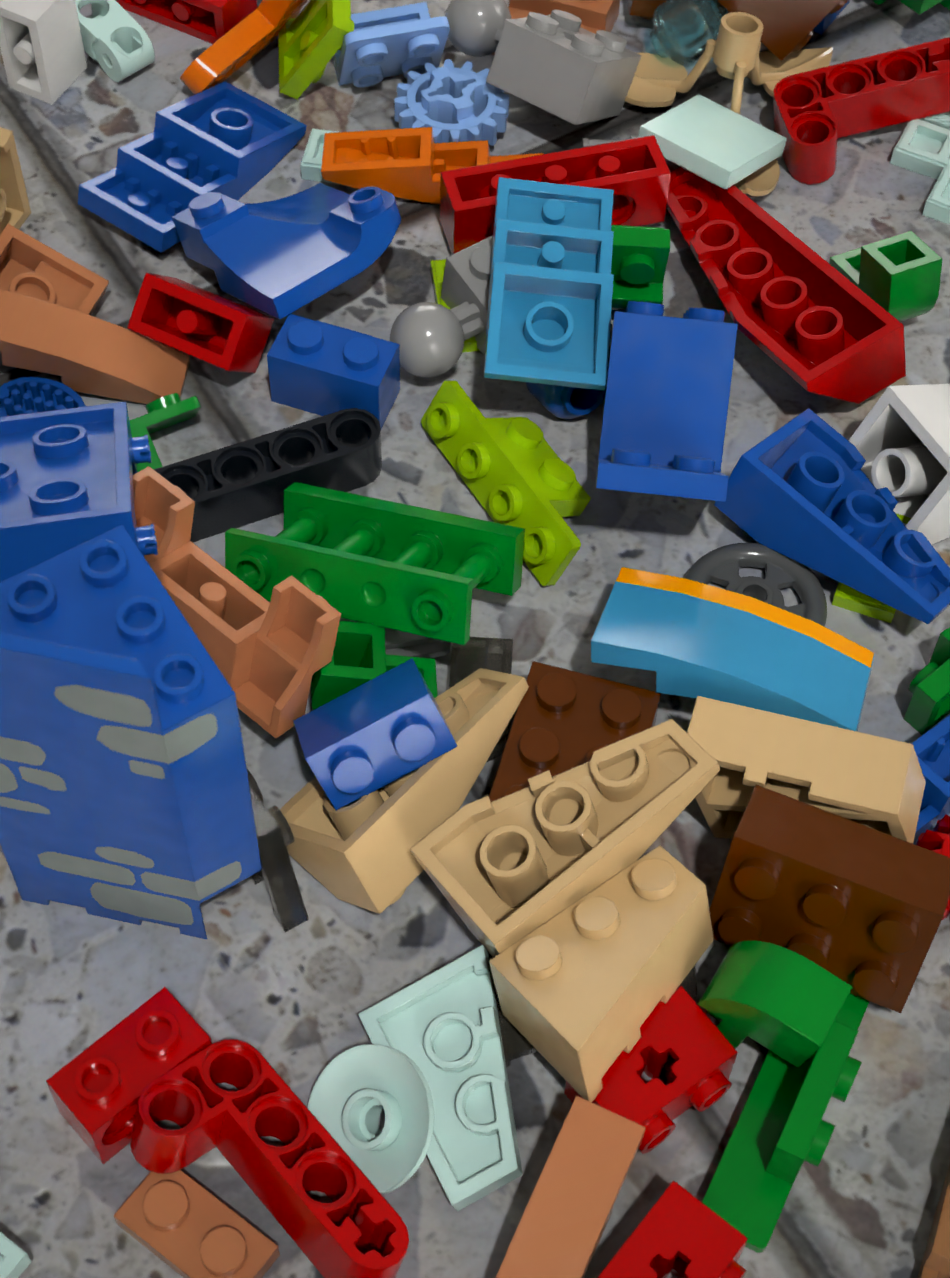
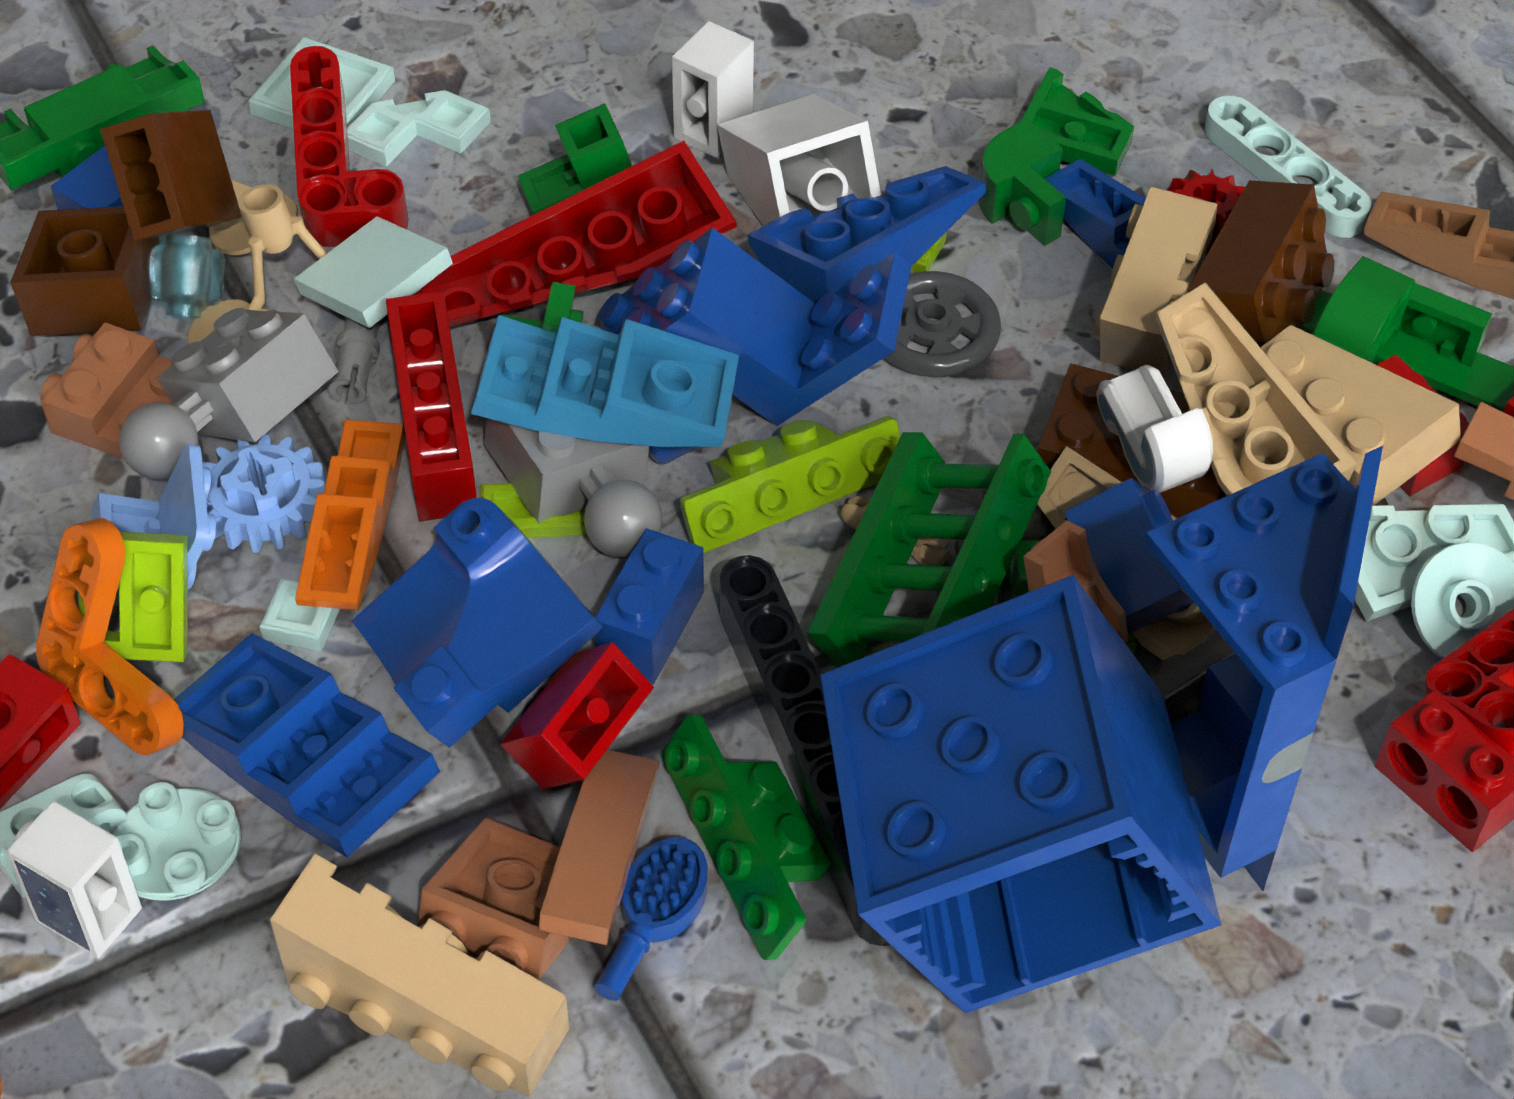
camera: 85 degrees left, 5 degrees down
(98, 103) = (178, 841): none -> light aqua dish
(523, 738) = (1154, 434): none -> white animal
(731, 649) = (1027, 314): dark azure slope -> none

